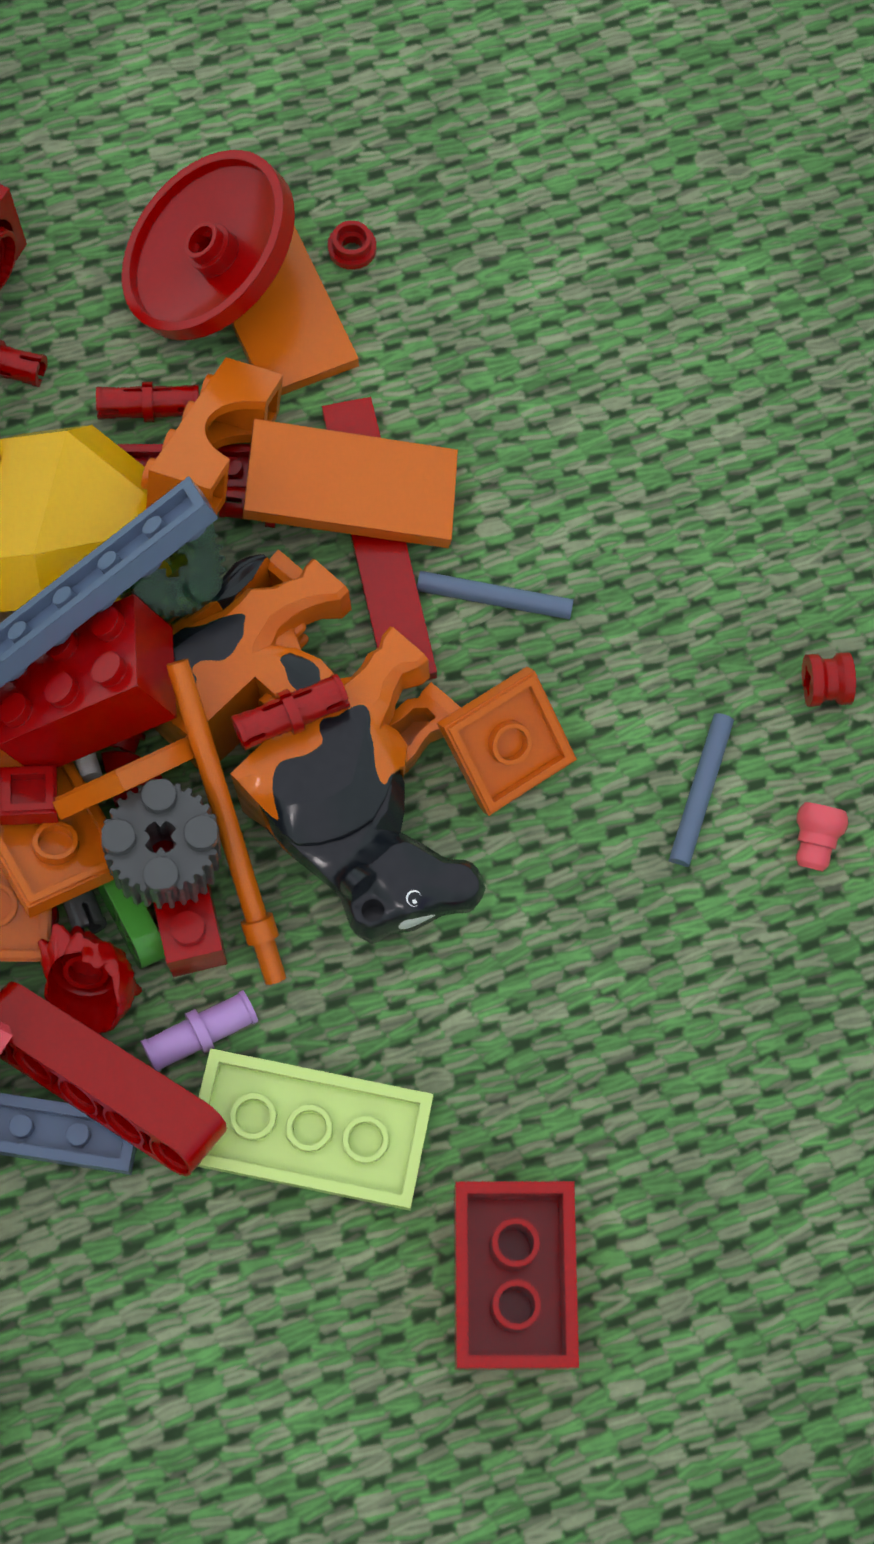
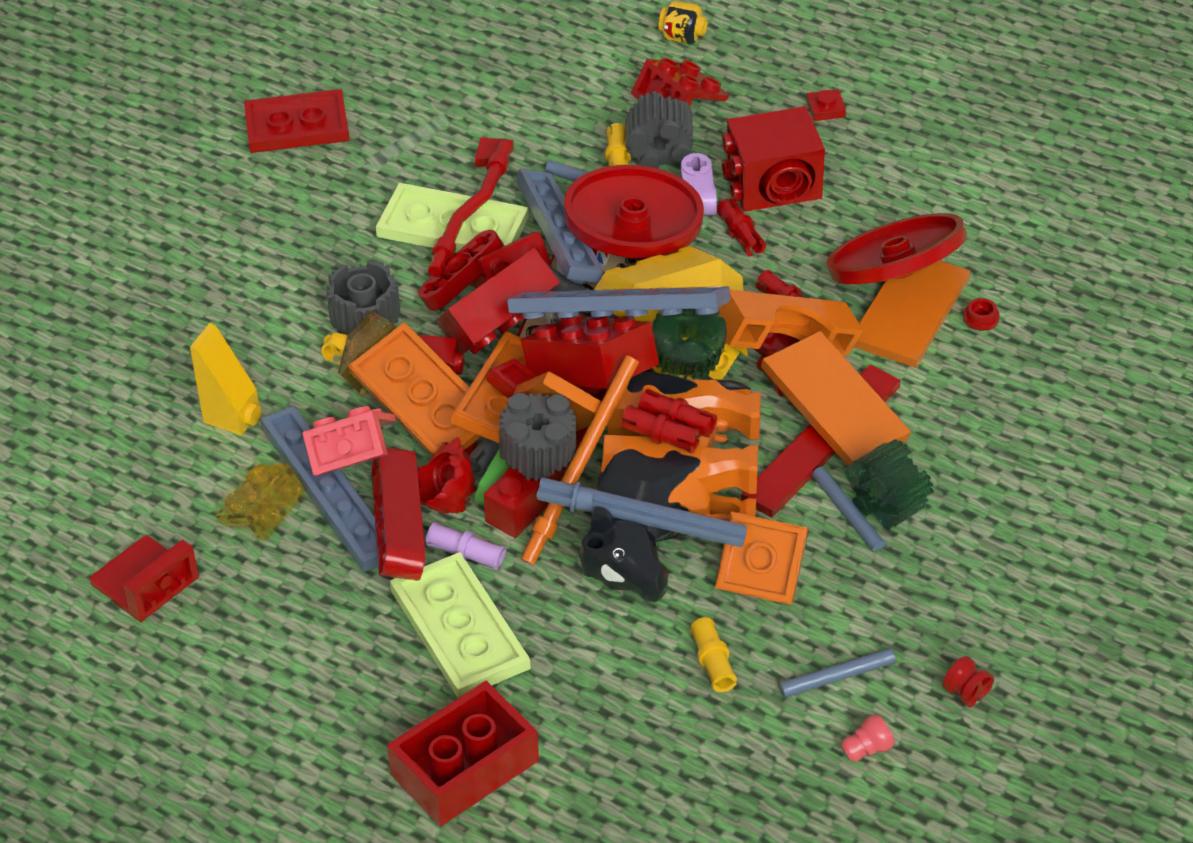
camera: 55 degrees right, 25 degrees down
(279, 673) = (679, 411): none -> red pin
(320, 867) = (642, 512): none -> sand blue axle
(525, 535) = (888, 484): none -> clear green brick
(581, 893) = (713, 654): none -> yellow pin

